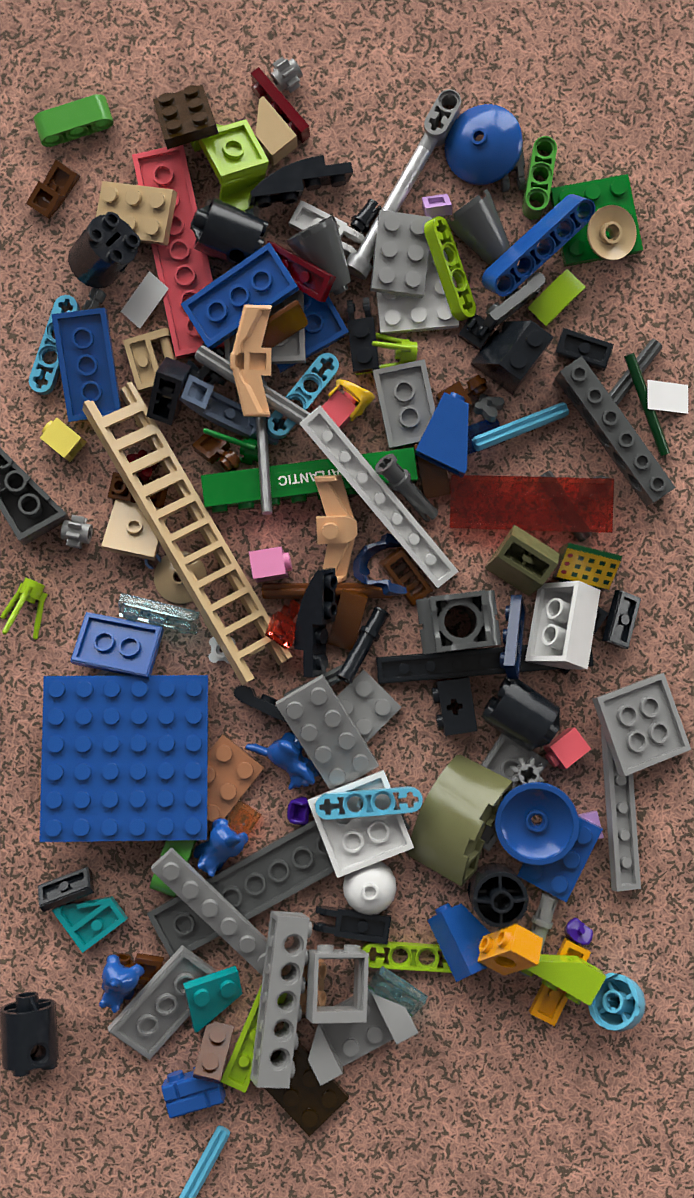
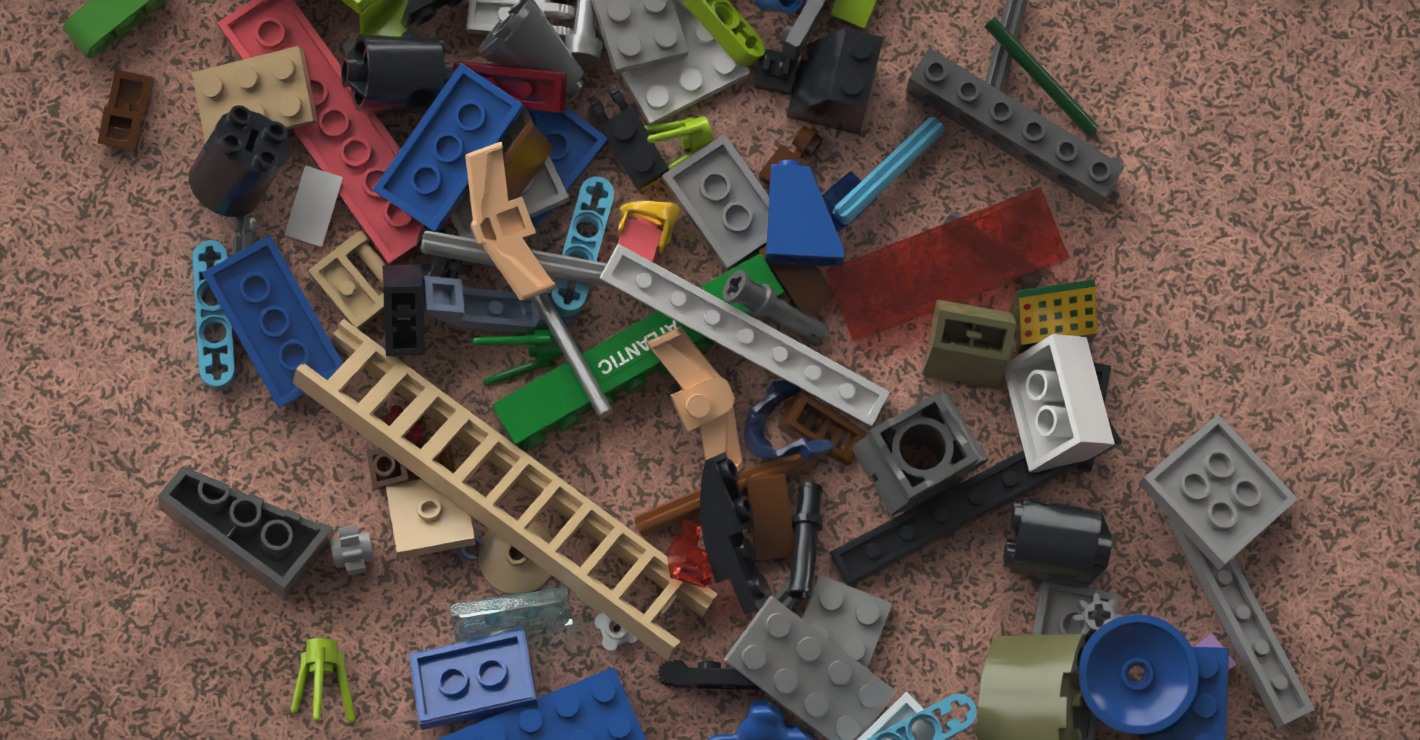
camera: 35 degrees left, 10 degrees down
(62, 439) = (280, 434): light yellow brick -> none
(213, 449) = (490, 364): reddish brown plate -> none
(270, 564) = (636, 483): bright pink brick -> none
(464, 719) = (963, 550): black brick -> none
(488, 407) = (835, 162): dark grey piece -> none
(513, 637) = (1000, 445): dark blue plate -> none
(566, 748) = (1134, 566): coral brick -> none
(574, 345) = (913, 37): black plate -> none
(621, 619) = (1131, 367): black plate -> none
(667, 396) = (1063, 55): white sticker -> none

